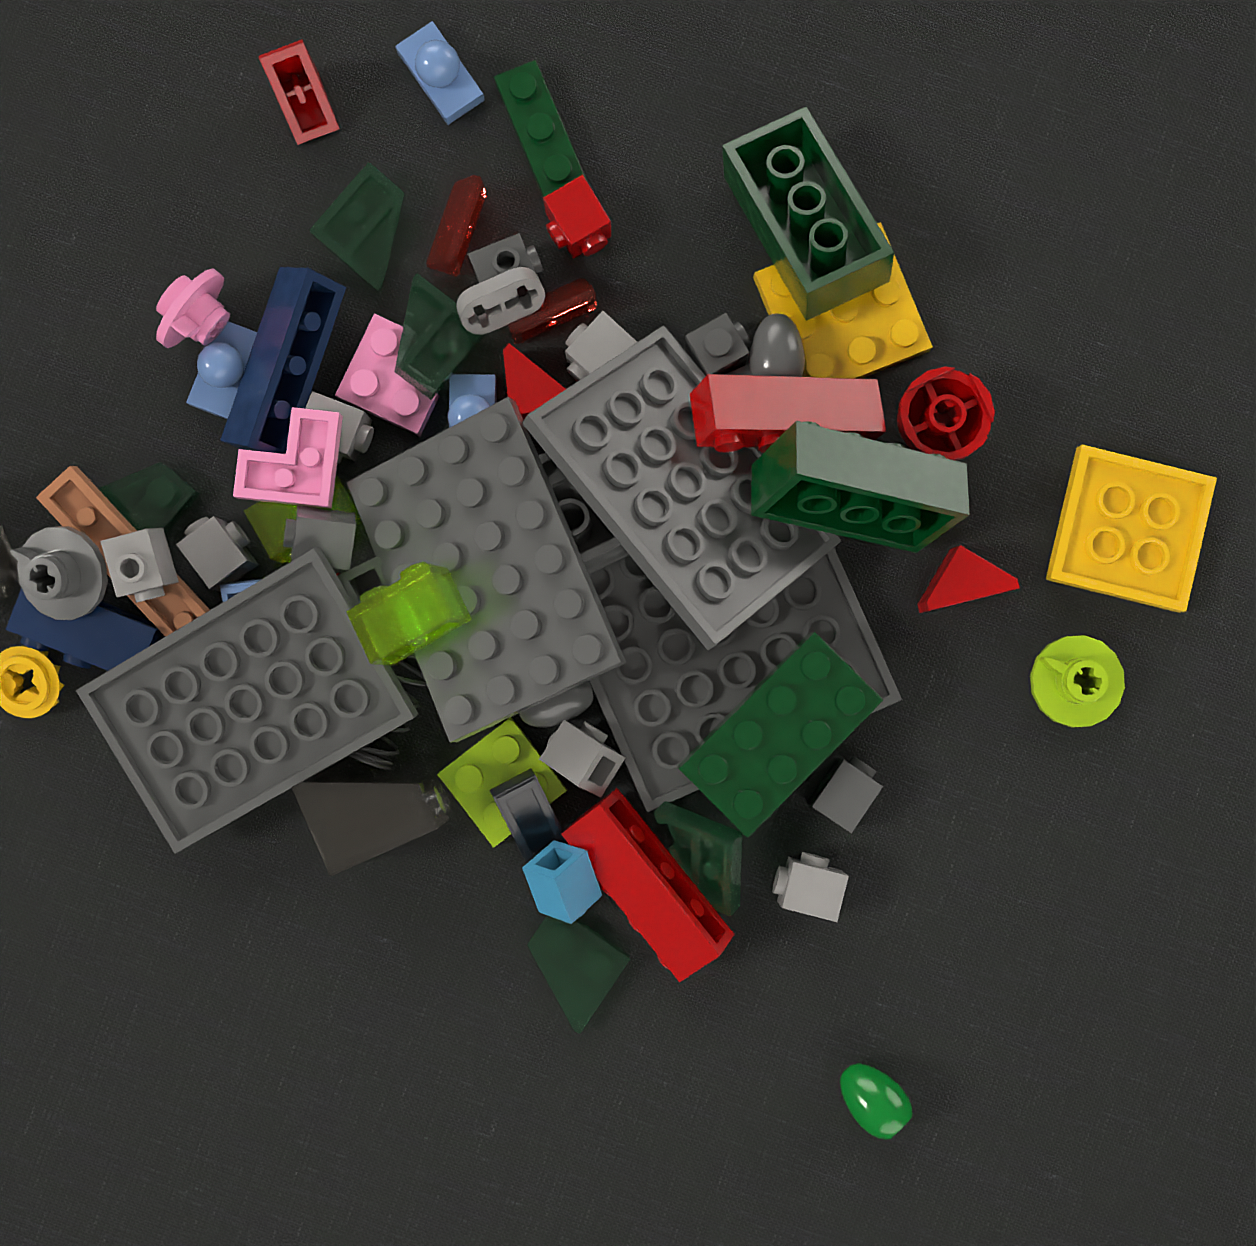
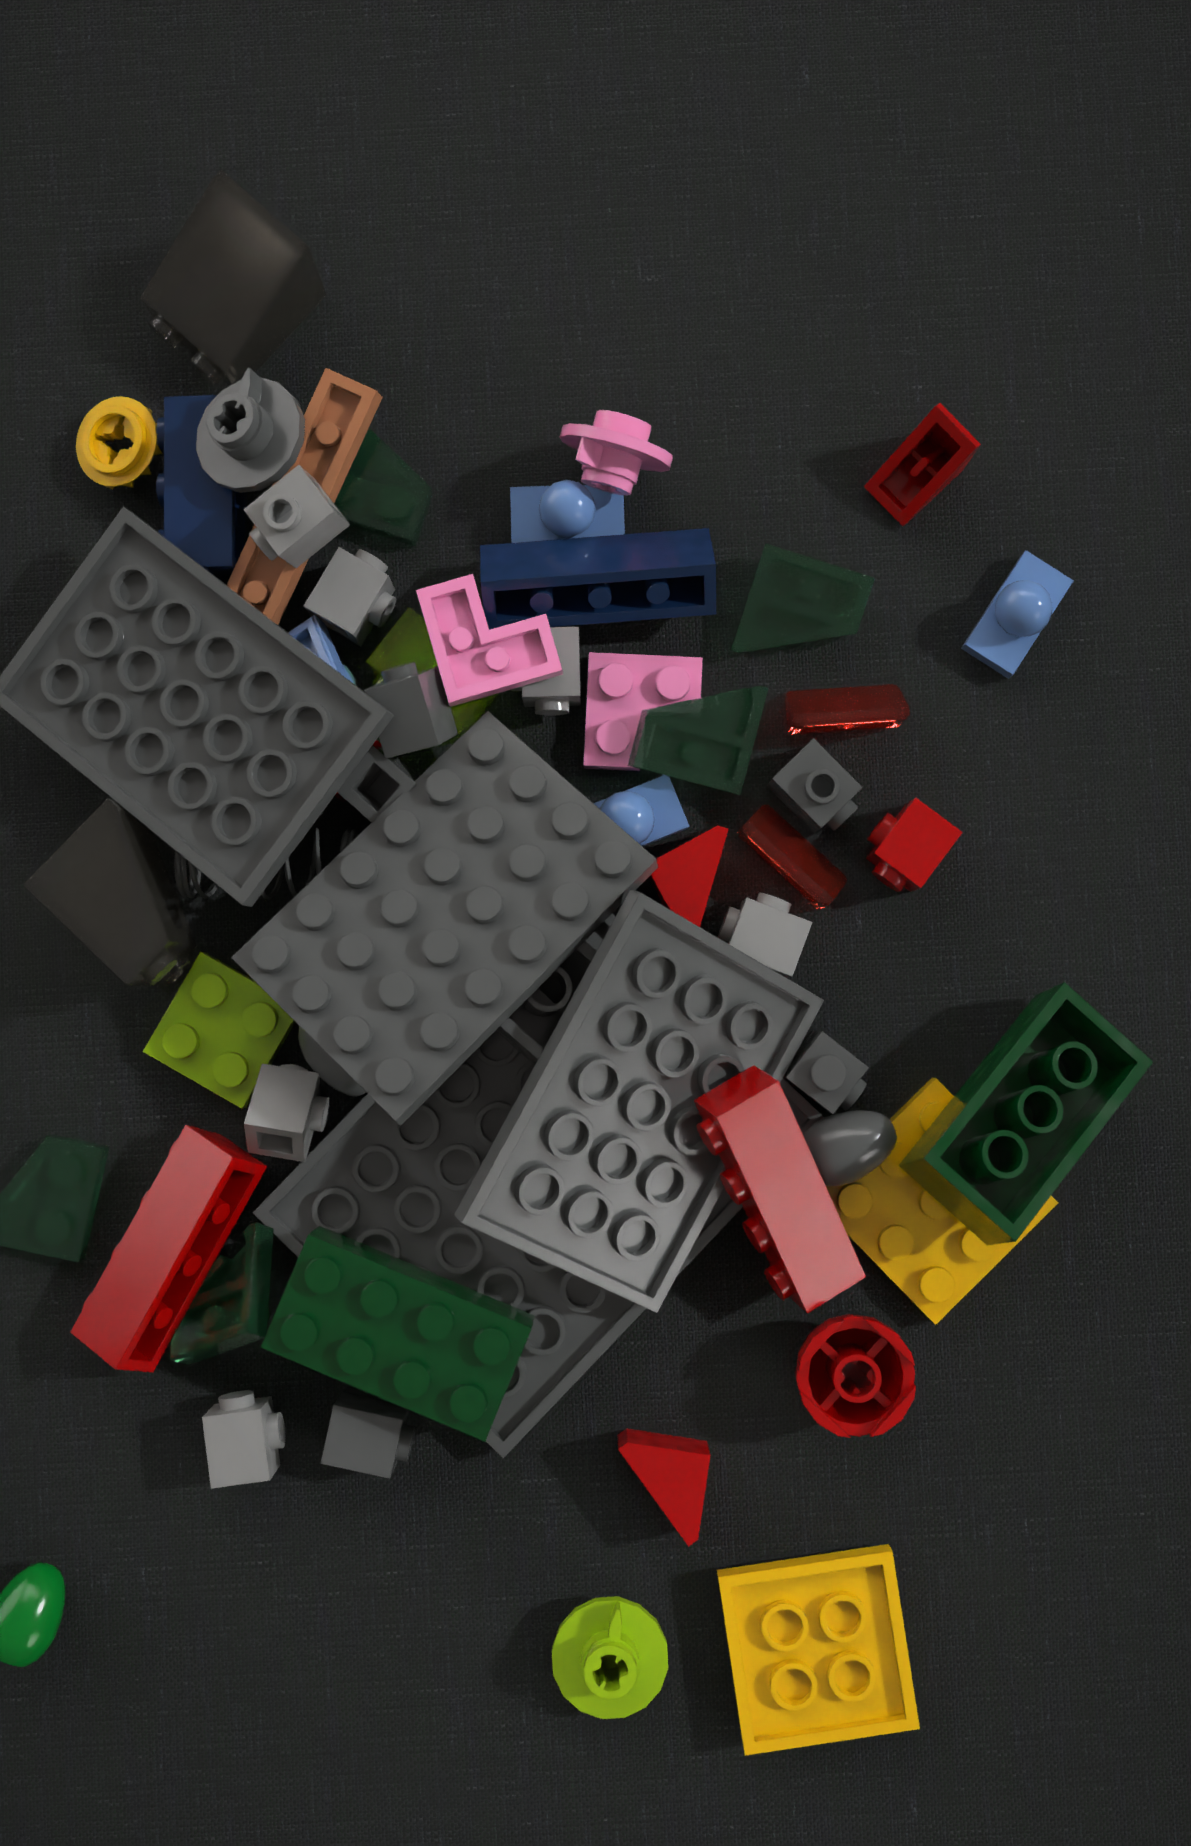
camera: 70 degrees right, 0 degrees up
(408, 613) = (356, 850): clear neon green brick -> none
(500, 300) = (773, 799): light grey beam -> none
(527, 814) = (190, 1080): black tile -> none
(538, 127) = (999, 757): dark green plate -> none
(562, 881) = (131, 1149): dark azure brick -> none
(858, 487) = (723, 1311): dark green brick -> none

